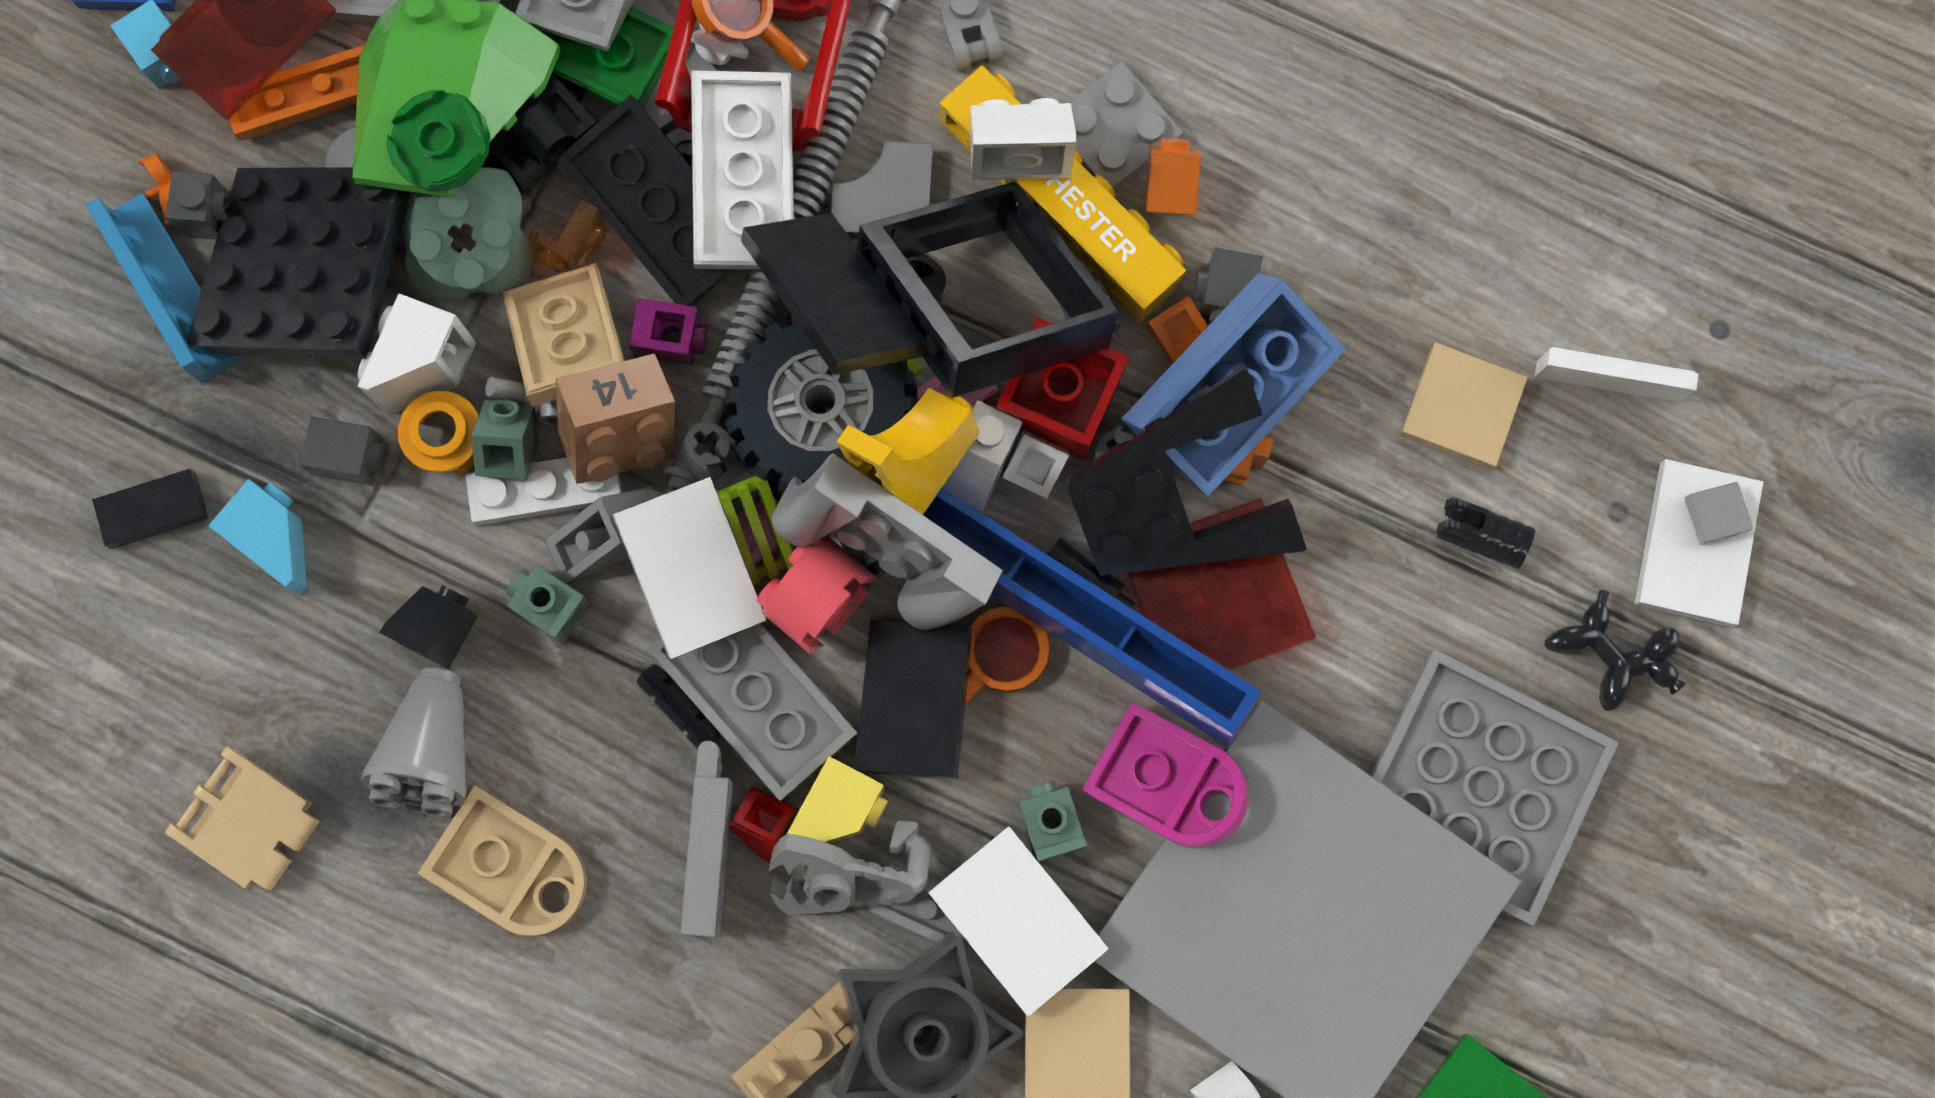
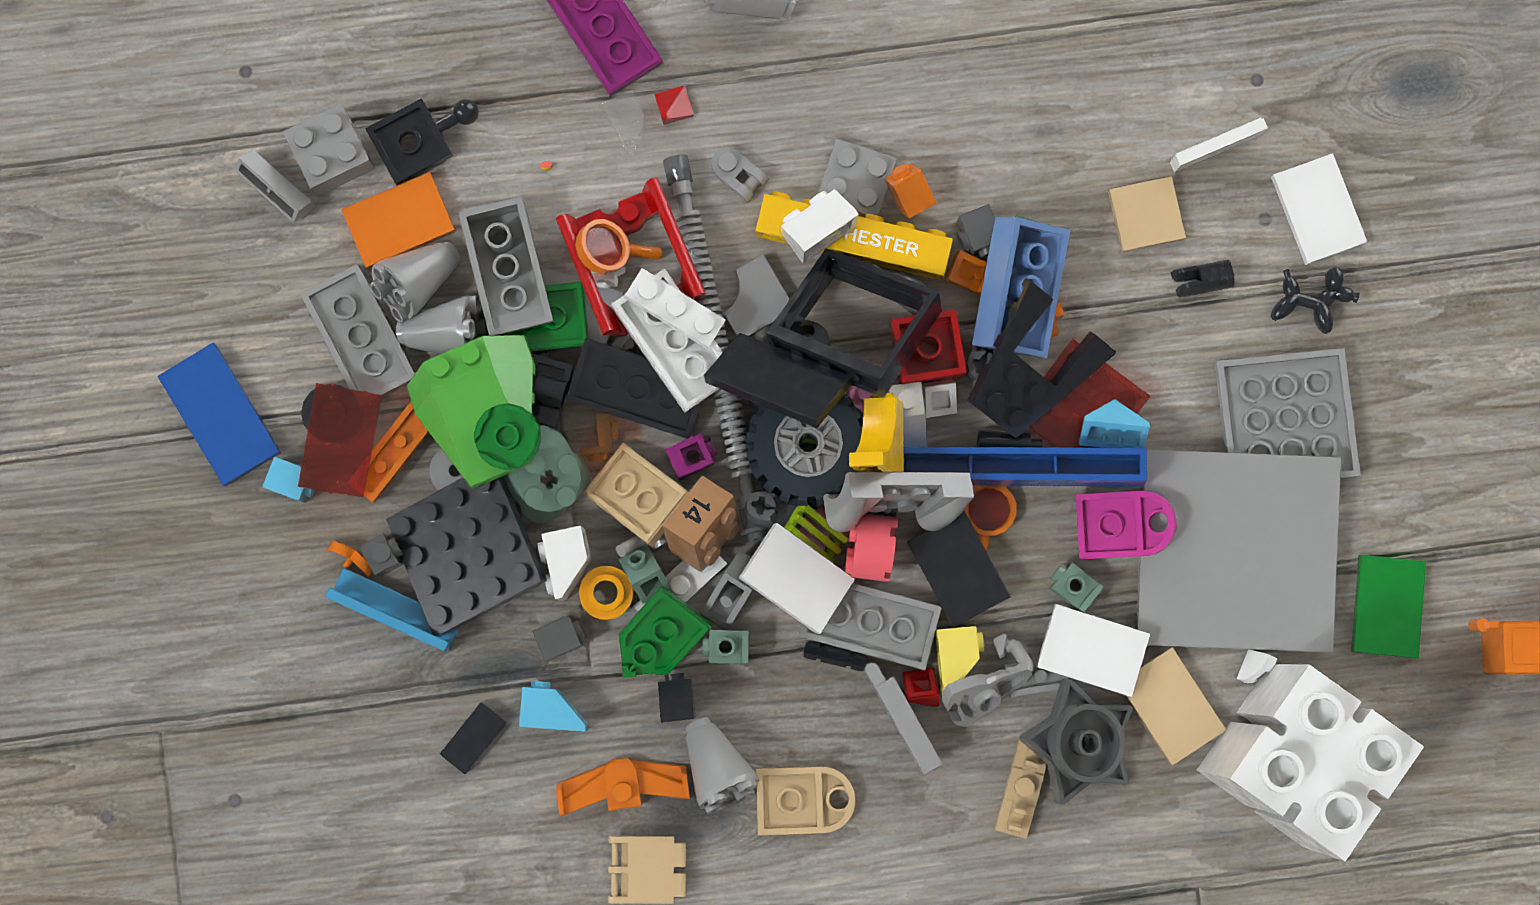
camera: 35 degrees left, 5 degrees up
(291, 692) = (622, 784): none -> orange plate
(471, 530) = (660, 635): none -> green tile
(767, 126) = (674, 308): none -> white plate
(1240, 642) = (1114, 428): none -> medium azure slope
(1718, 513) = (1320, 187): light grey tile -> none

